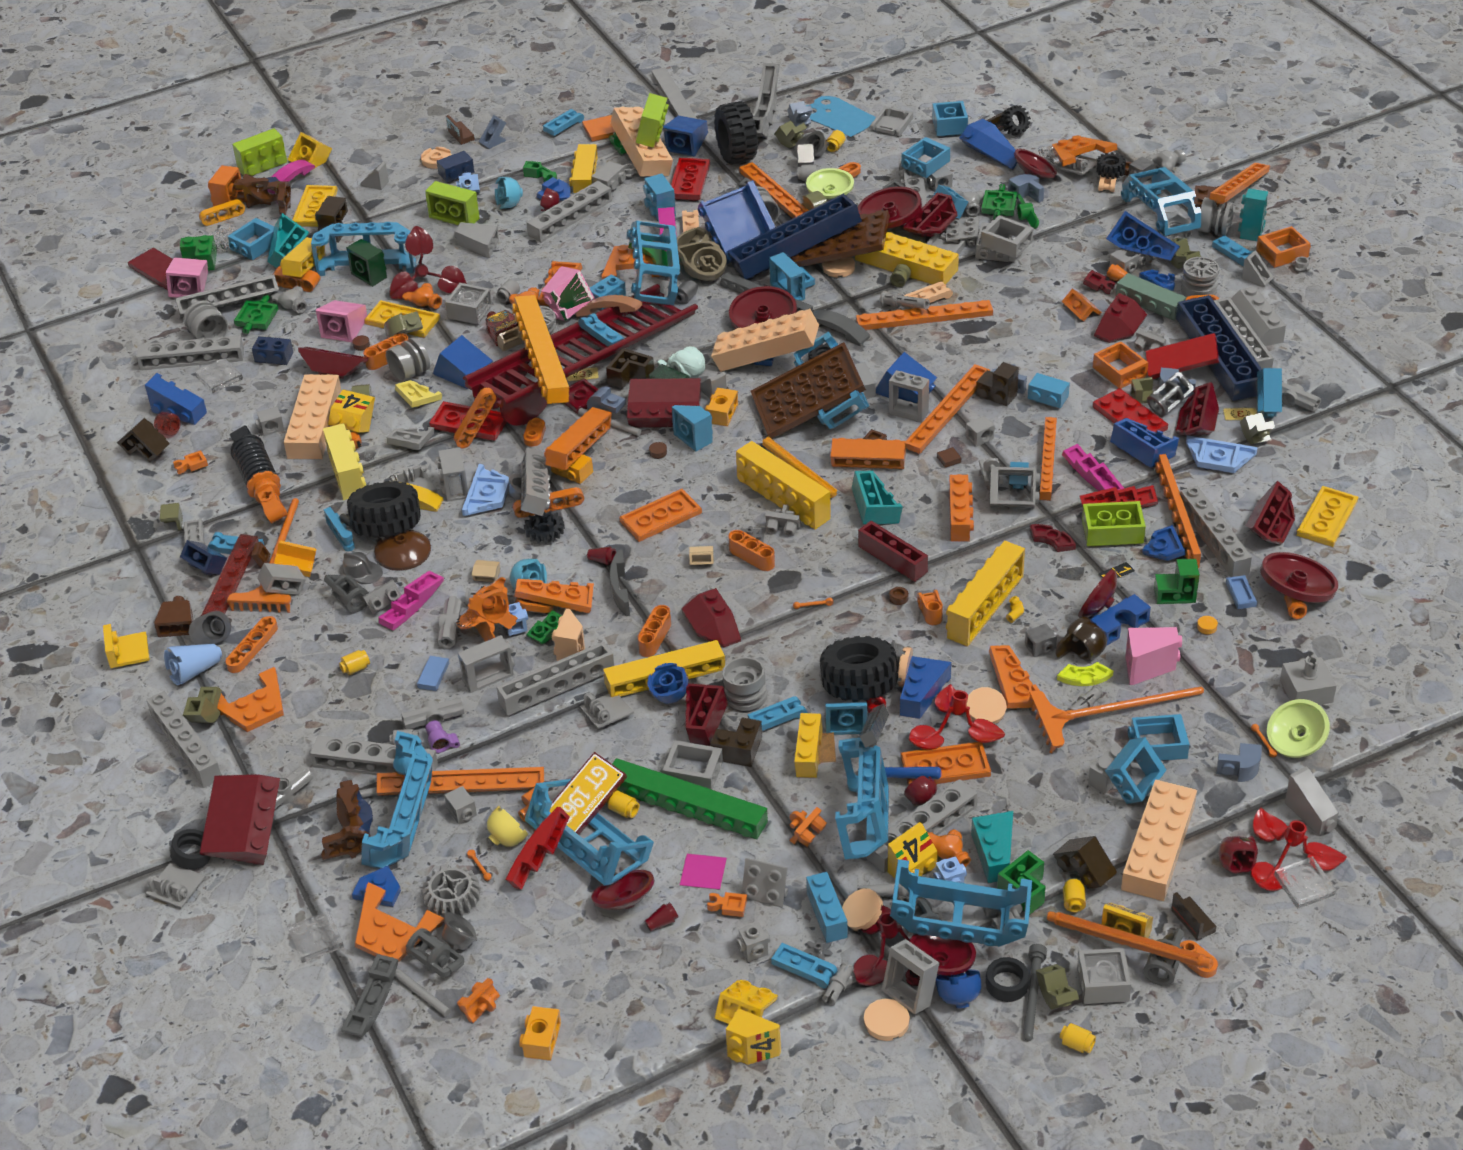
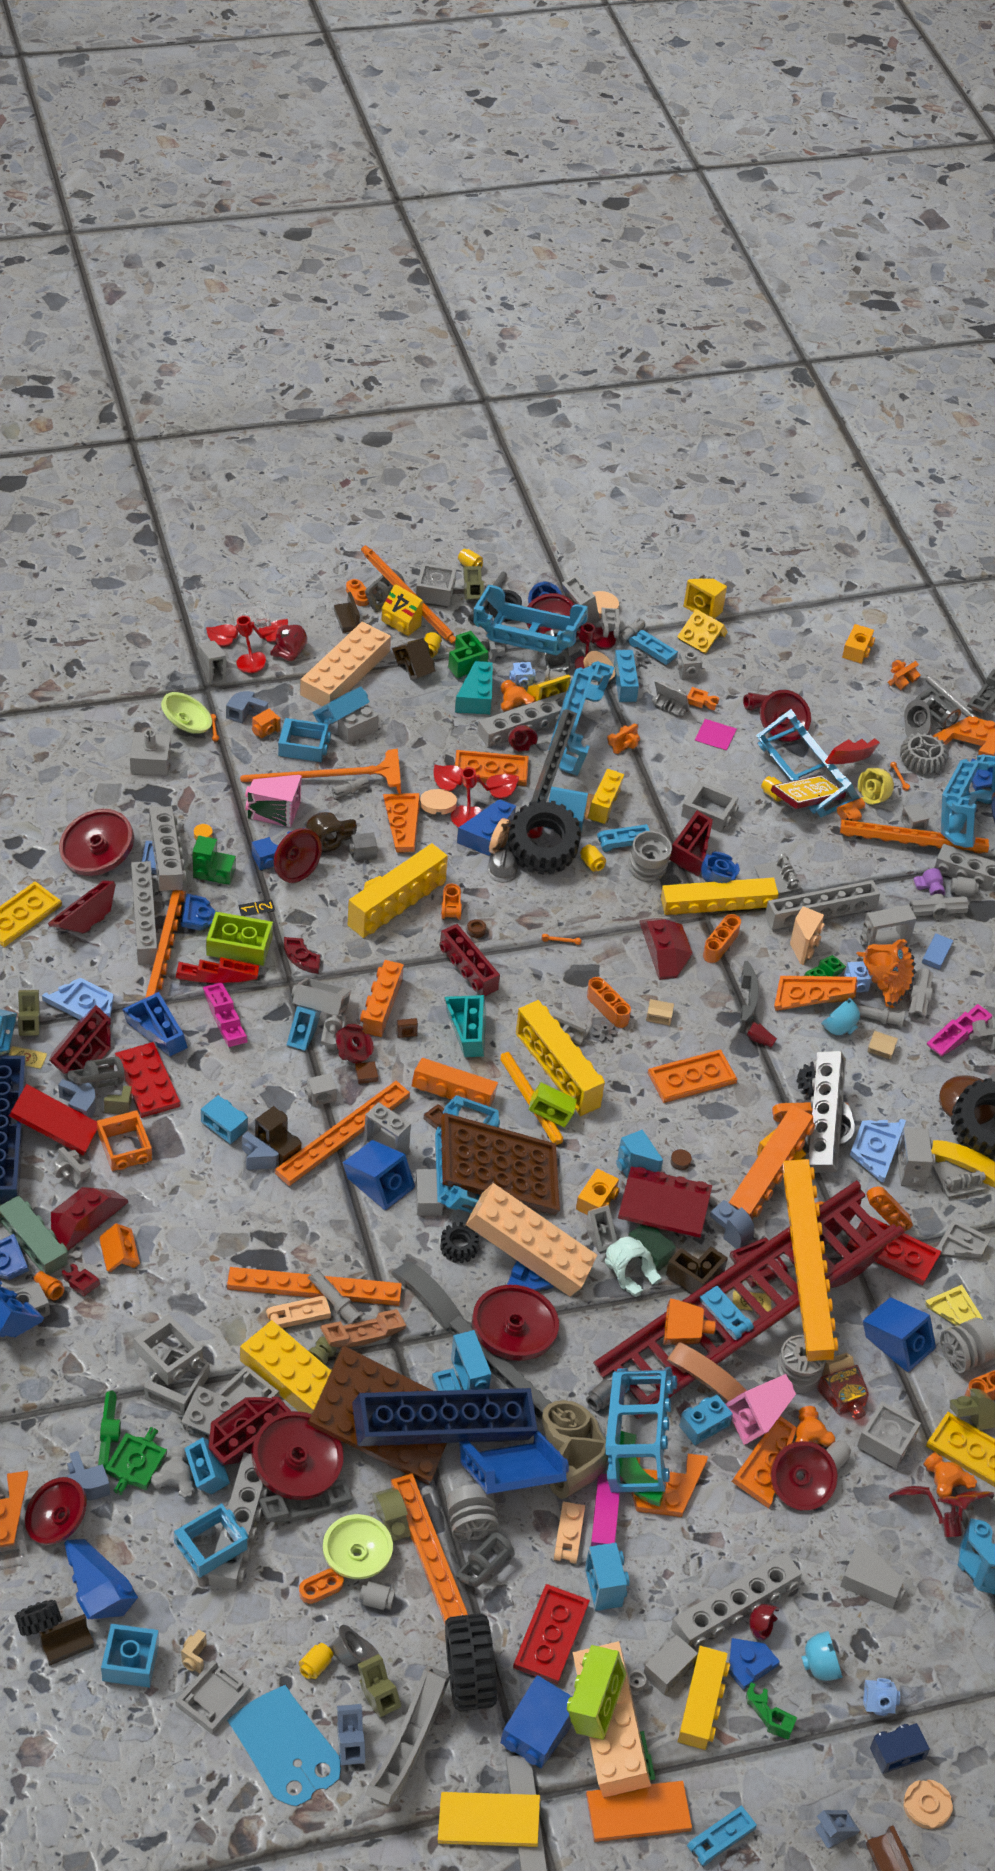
camera: 175 degrees left, 5 degrees up
(452, 203) = (906, 1642): lime brick -> none
(531, 273) = (818, 1475): none -> dark red dish
(630, 318) = (685, 1323): none -> orange torso
(692, 800) = (699, 768): green brick -> none
(700, 102) = (489, 1819): none -> yellow tile
(742, 745) = (667, 811): dark brown brick -> none
(782, 446) = (552, 1104): none -> lime brick
(804, 682) = (593, 858): none -> yellow brick
(805, 154) = (372, 1624): brick -> none
(866, 973) = (610, 621): none -> light grey hinge
(890, 280) = (364, 1332): none -> nougat slope
(911, 129) = (192, 1648): none -> tan bracket
(913, 772) = (527, 756): blue piece -> none
(928, 491) = (407, 1028): none -> reddish brown tile
(967, 461) = (346, 1048): none -> dark red plate
(1048, 458) = (262, 1044): orange piece -> none
(1085, 676) = (341, 813): neon yellow tile -> none
(1209, 748) = (266, 723): none -> orange brick
(1229, 580) = (167, 848): none -> light grey brick

